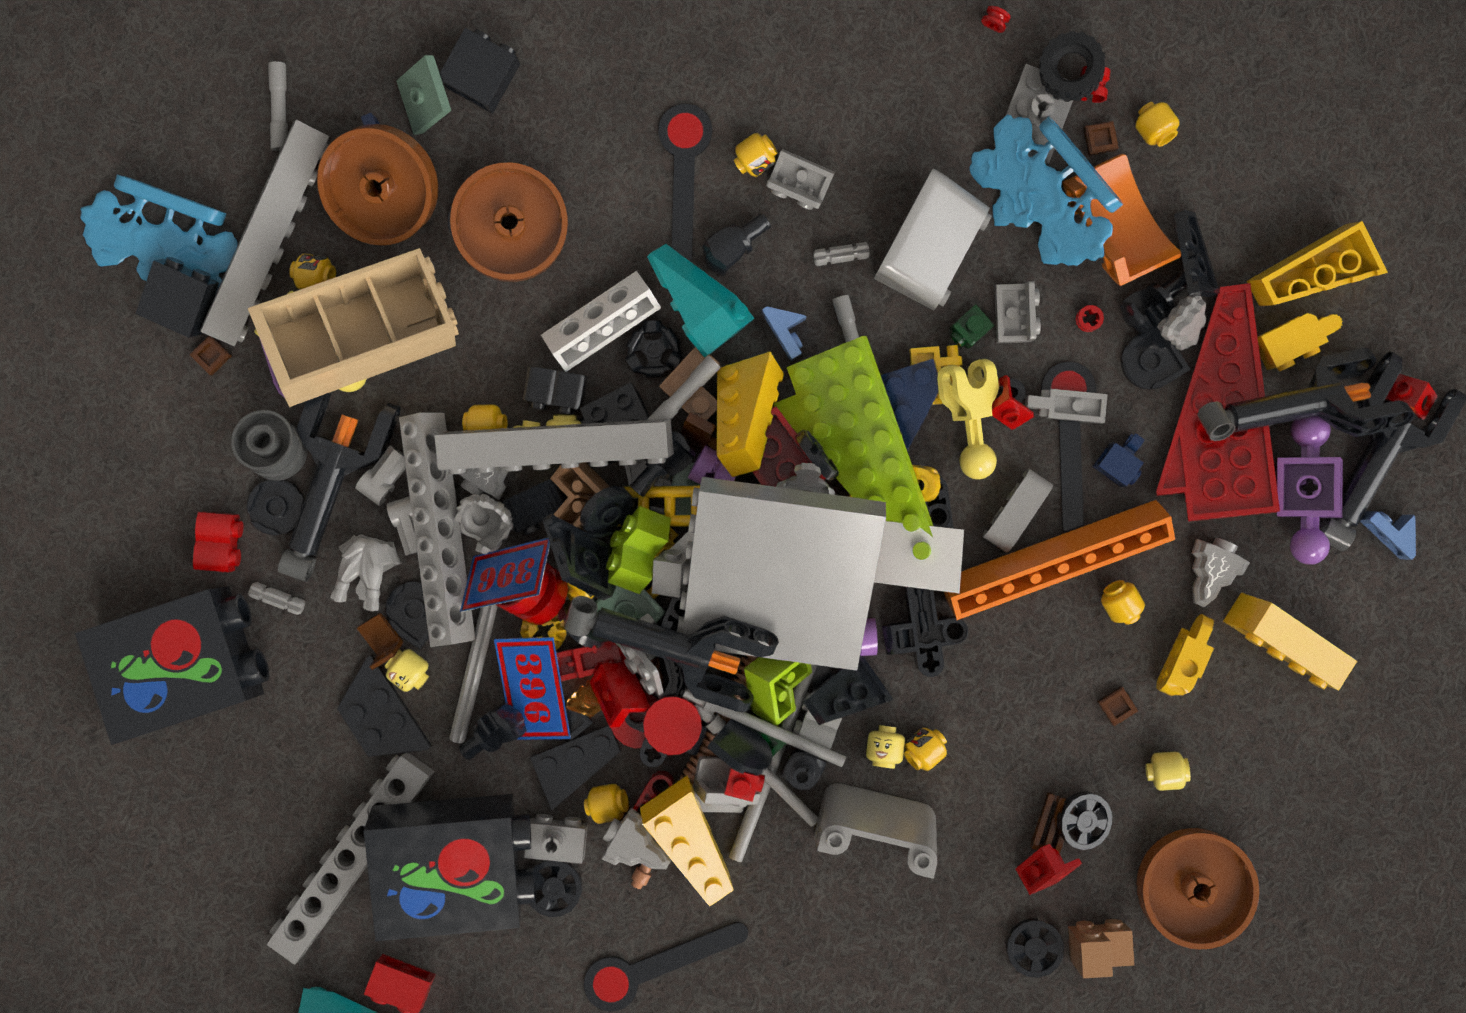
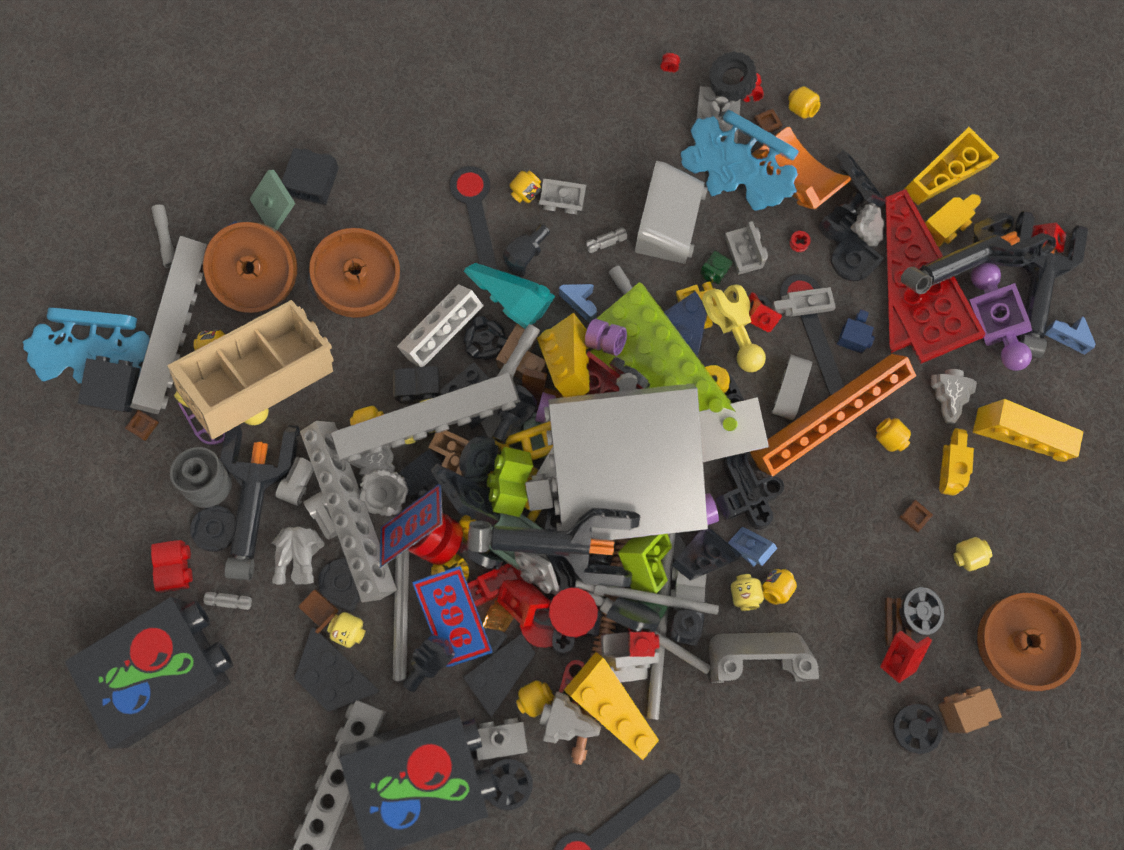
camera: 15 degrees left, 15 degrees down
(797, 393) = (605, 337): none -> medium lavender wheel
(908, 694) = (752, 546): none -> medium blue slope

